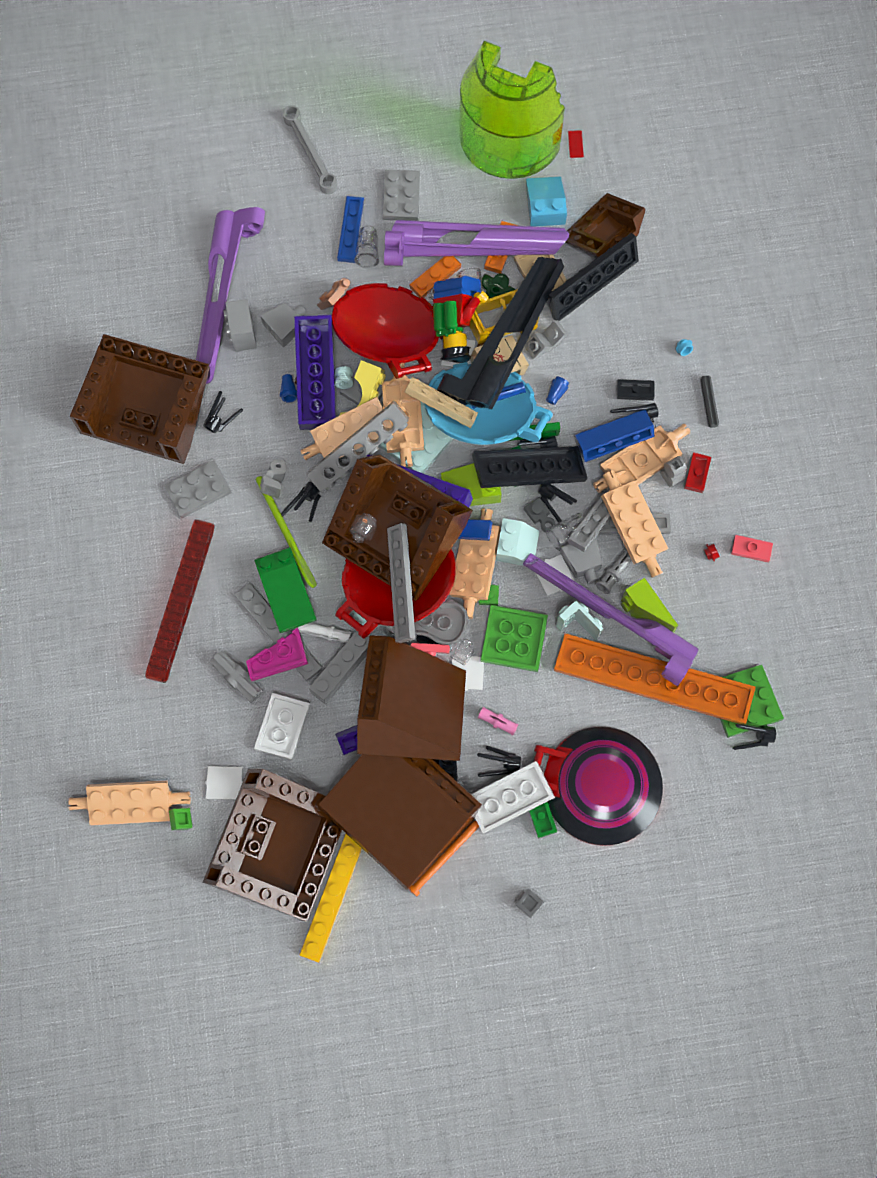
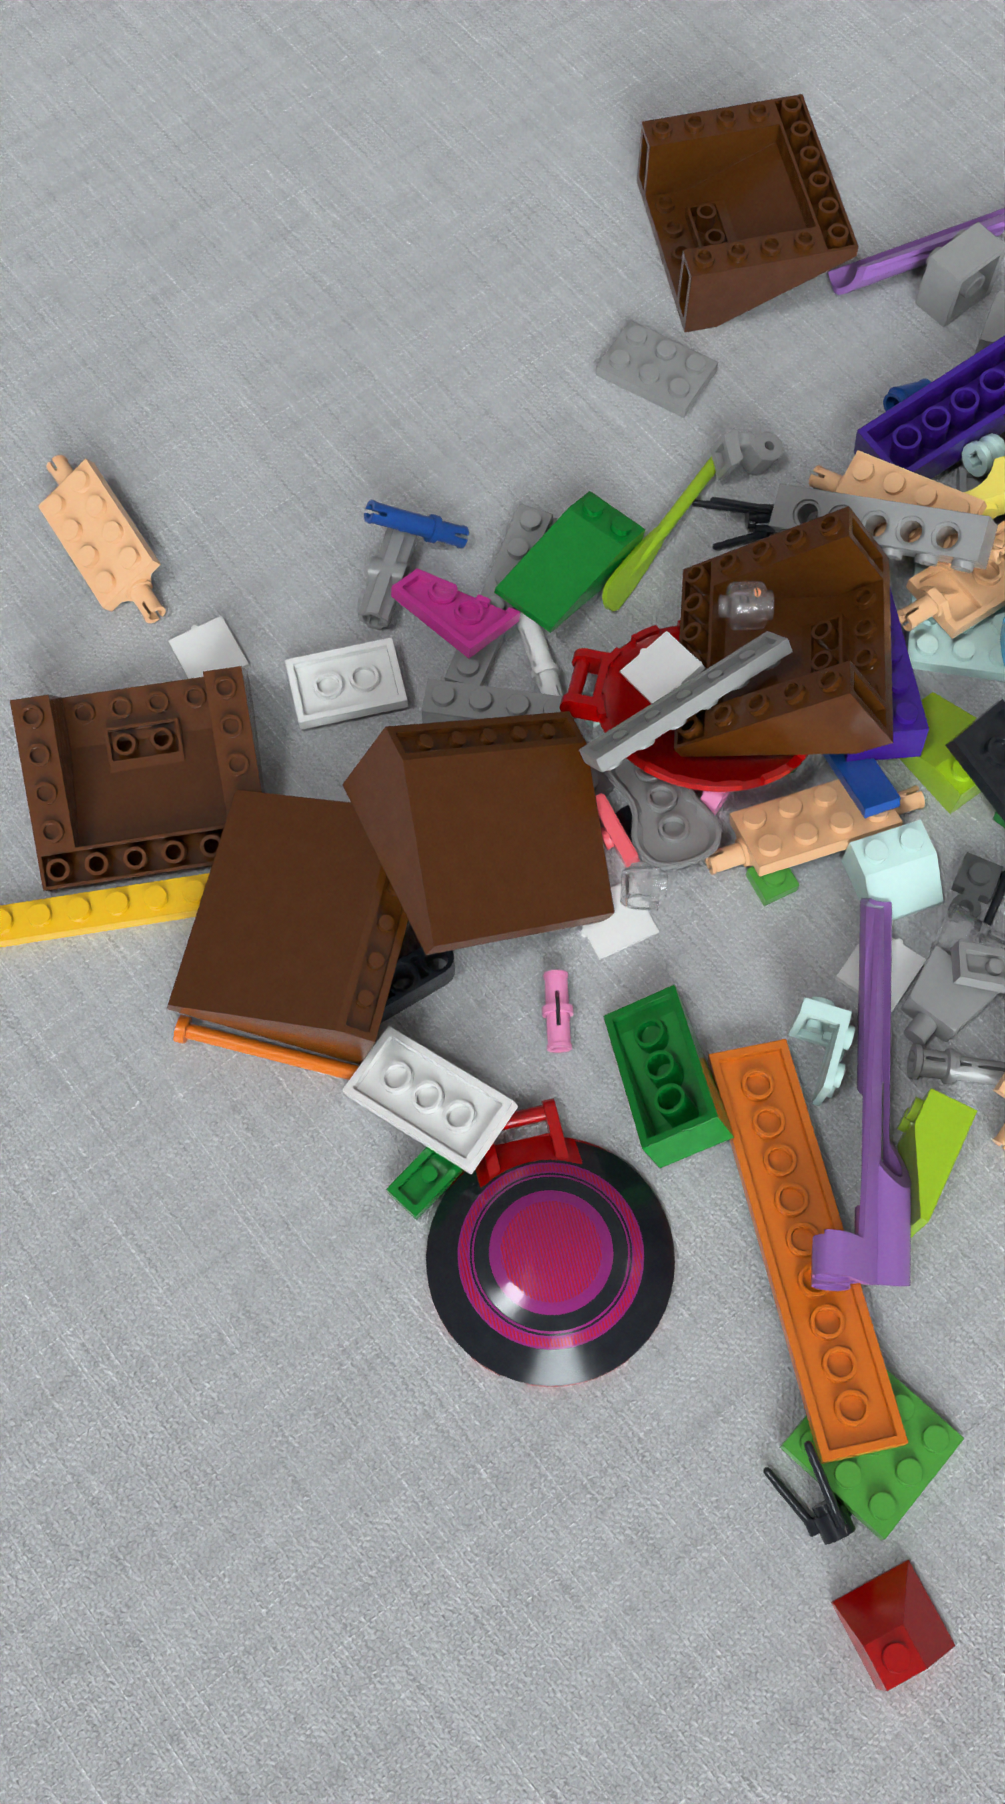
camera: 60 degrees right, 5 degrees down
(180, 601) = (461, 436): clear red beam -> none
(180, 819) = (112, 619): bright green plate -> none
(213, 422) = (778, 327): black plant -> none
(225, 643) = (429, 527): none -> blue pin
(372, 583) = (661, 668): none -> white piece
(510, 761) = (494, 1070): black plant -> none
(514, 638) = (723, 959): bright green plate -> none
(529, 903) = (260, 1238): flat silver plate -> none
(554, 692) = (666, 1078): none -> green slope
(816, 735) = (893, 1626): none -> red slope

